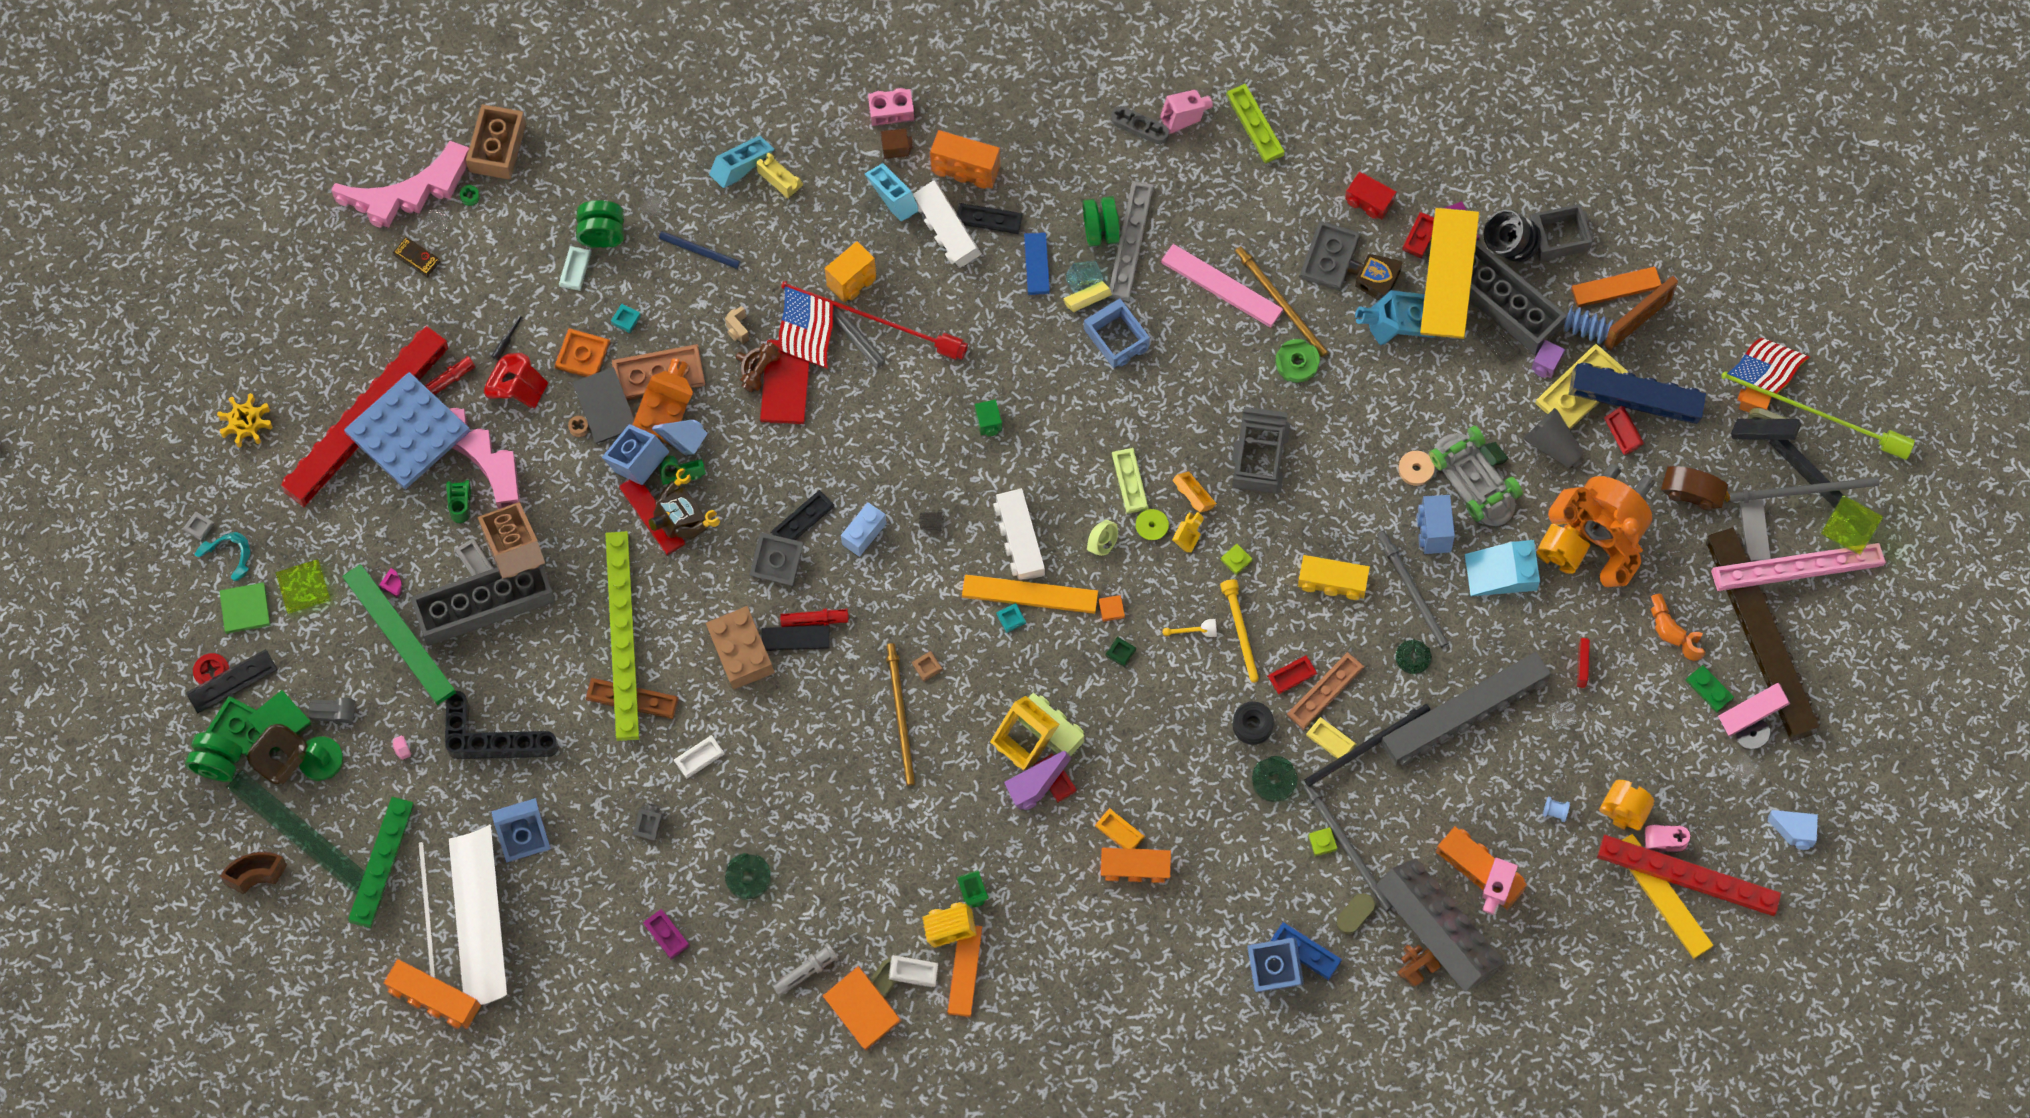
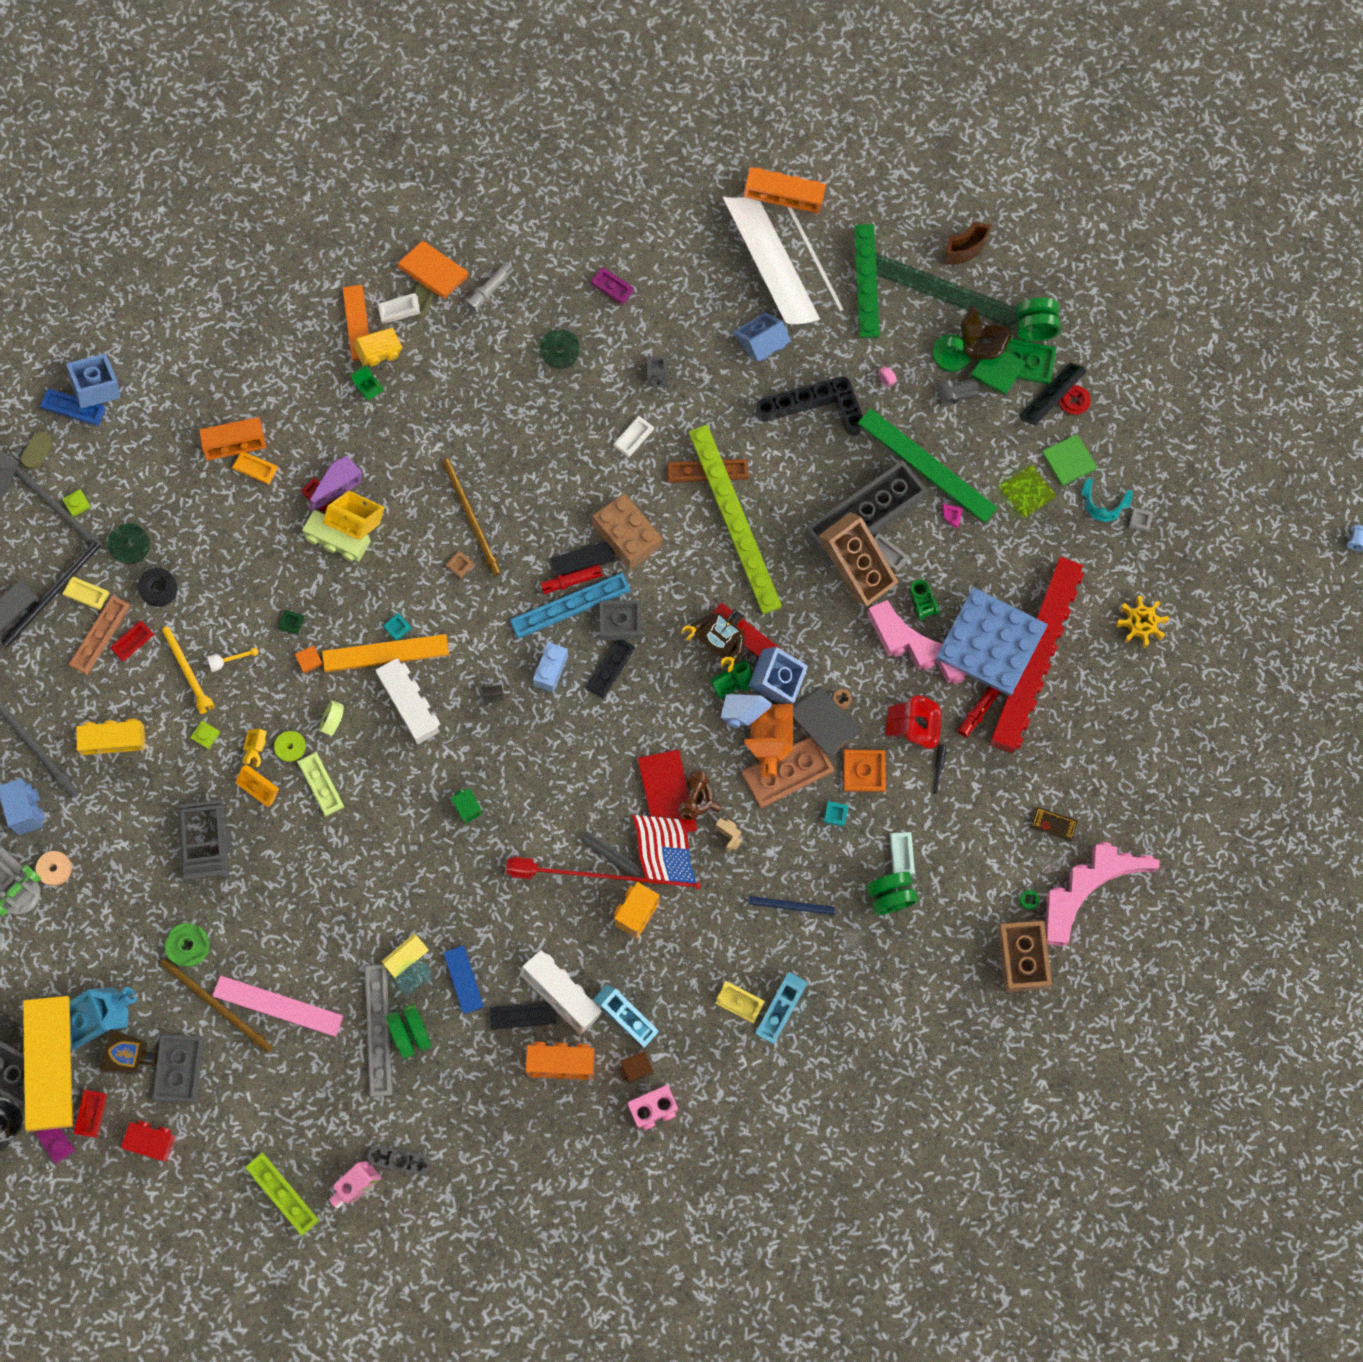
camera: 160 degrees right, 5 degrees up
(824, 593) = (569, 605): none -> dark azure tile
(1107, 315) = (382, 937): medium blue window -> none
(1406, 663) = (32, 693): clear green gear -> none

